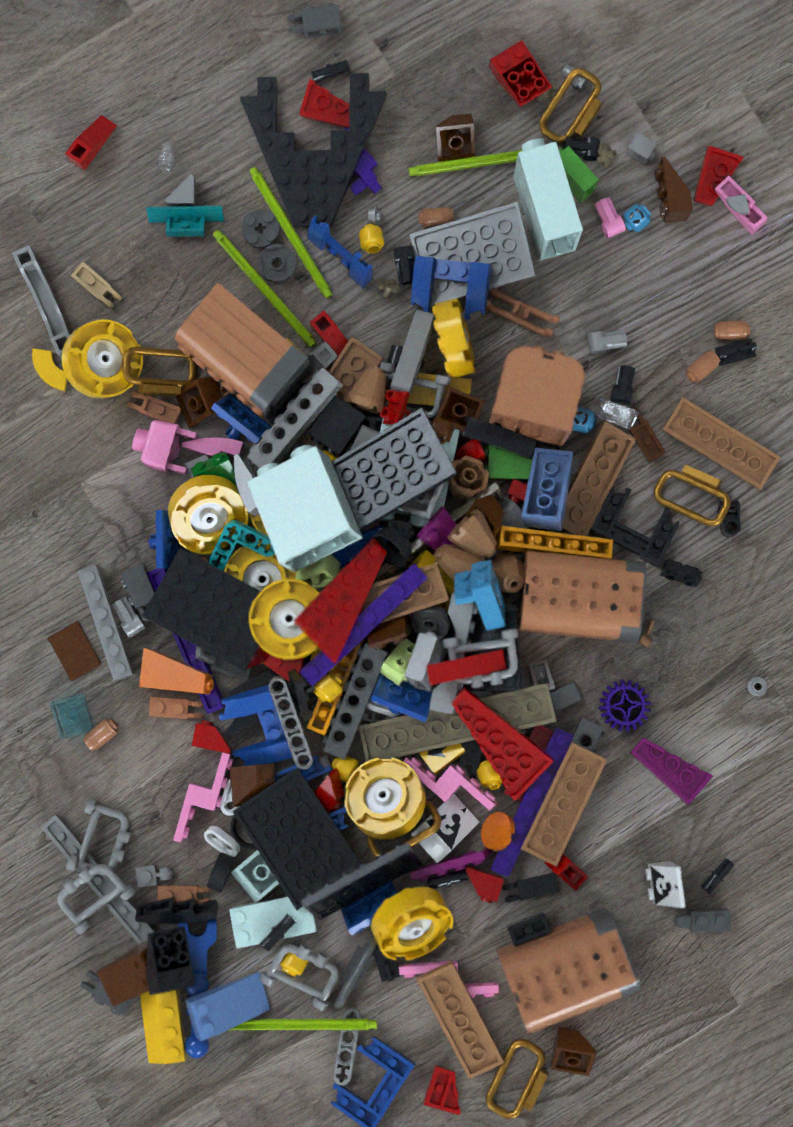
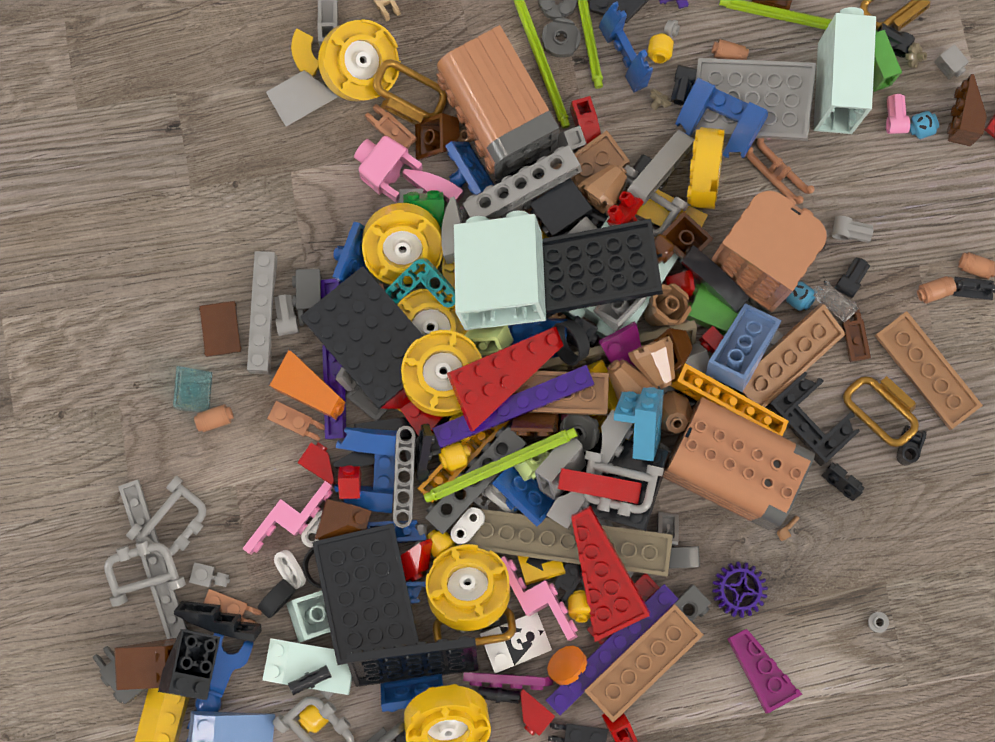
camera: 10 degrees right, 5 degrees down
(60, 412) = (299, 97): none -> light grey slope
(244, 745) = (349, 482): none -> red slope
(363, 743) = (469, 527): none -> white plate
(369, 683) = (500, 465): none -> lime piece

